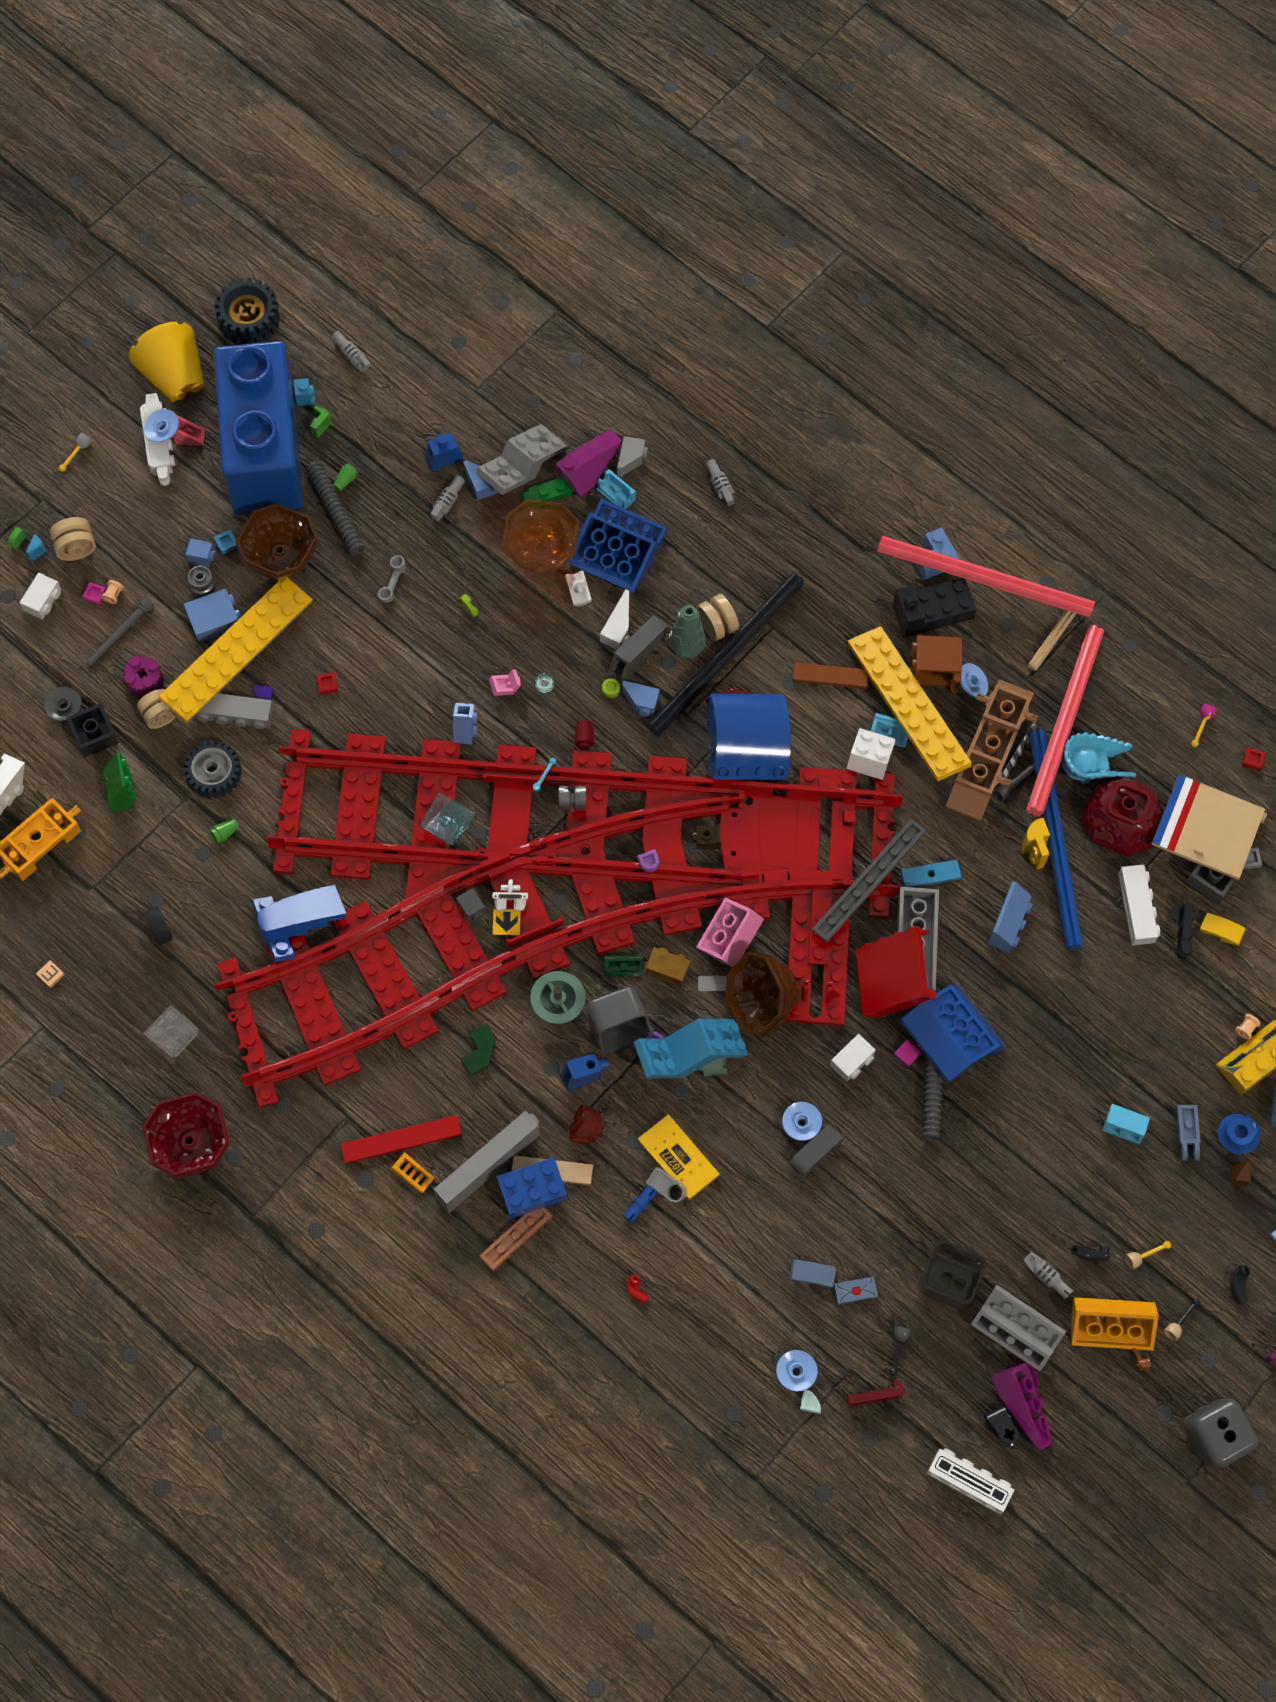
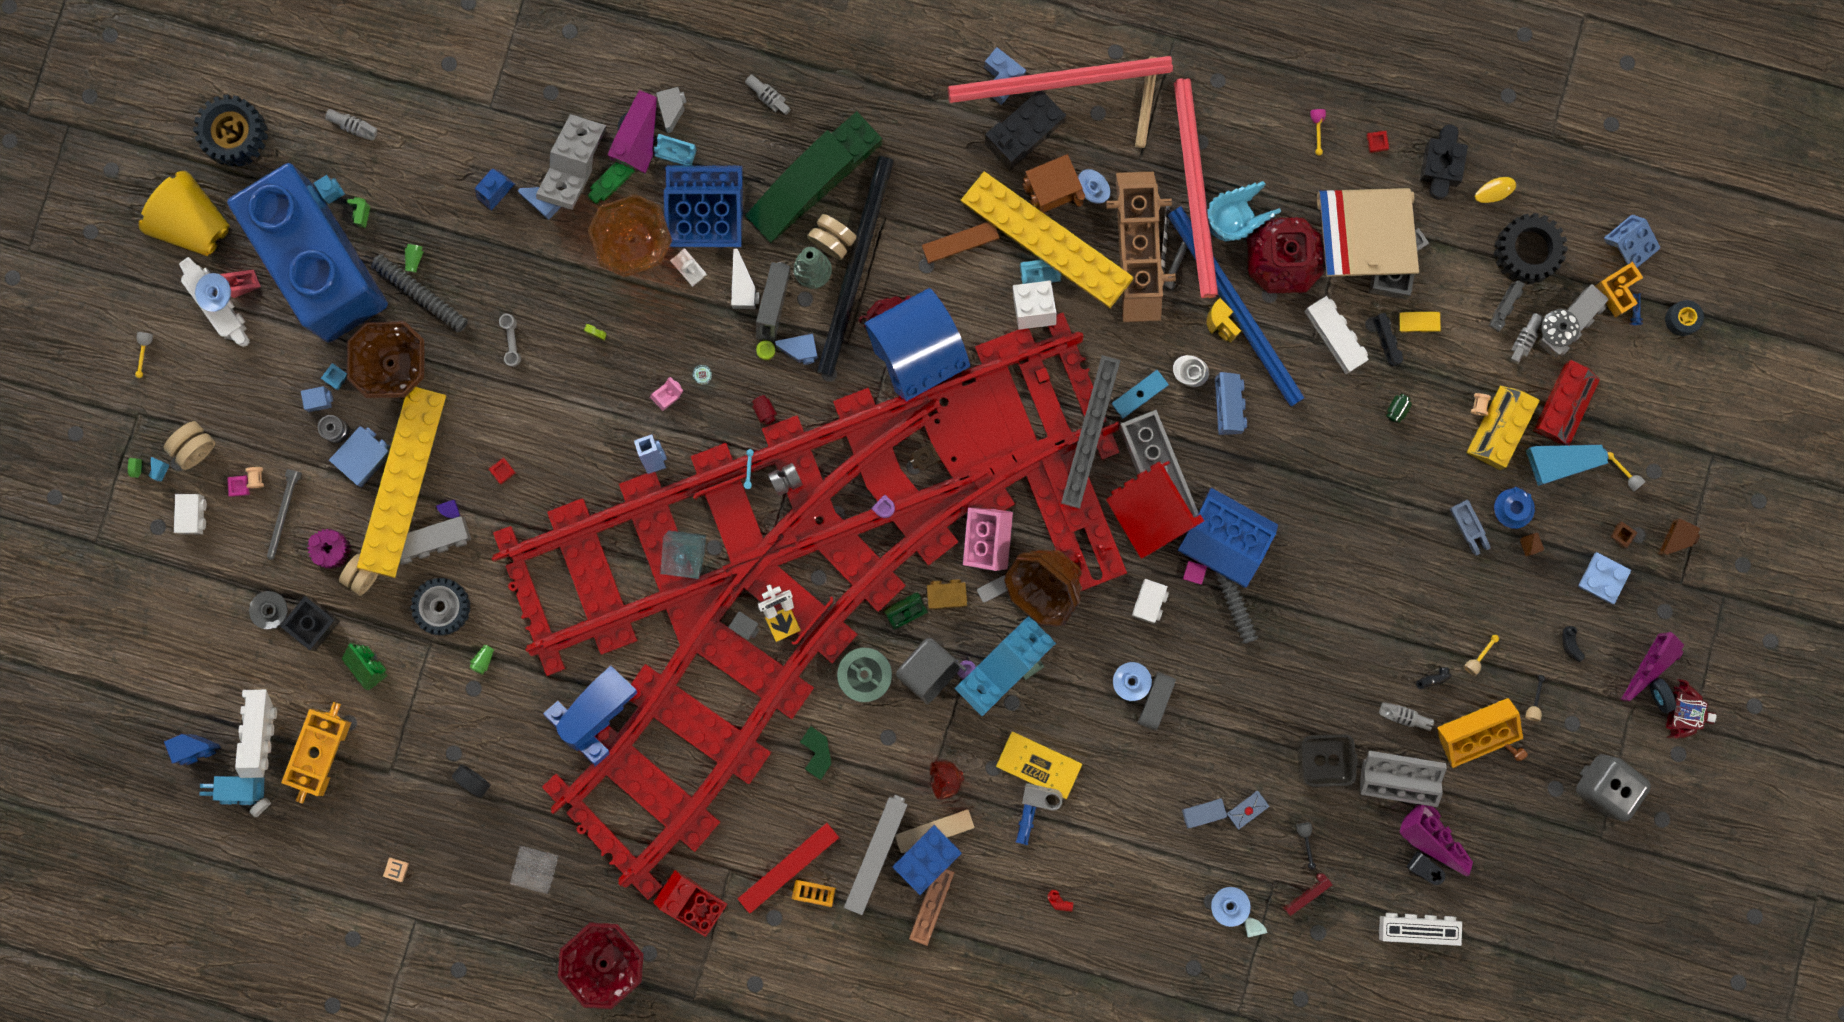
camera: 25 degrees left, 15 degrees up
(295, 1128) = (690, 903): none -> red slope
(447, 498) = (520, 233): light grey hinge -> none
(583, 1071) = (915, 734): blue torso -> none
(727, 561) = (813, 176): none -> dark green slope
(987, 875) = (1191, 371): none -> white hat
(1126, 1124) = (1413, 546): medium azure hinge -> none
(1168, 995) = (1399, 408): none -> dark green brick

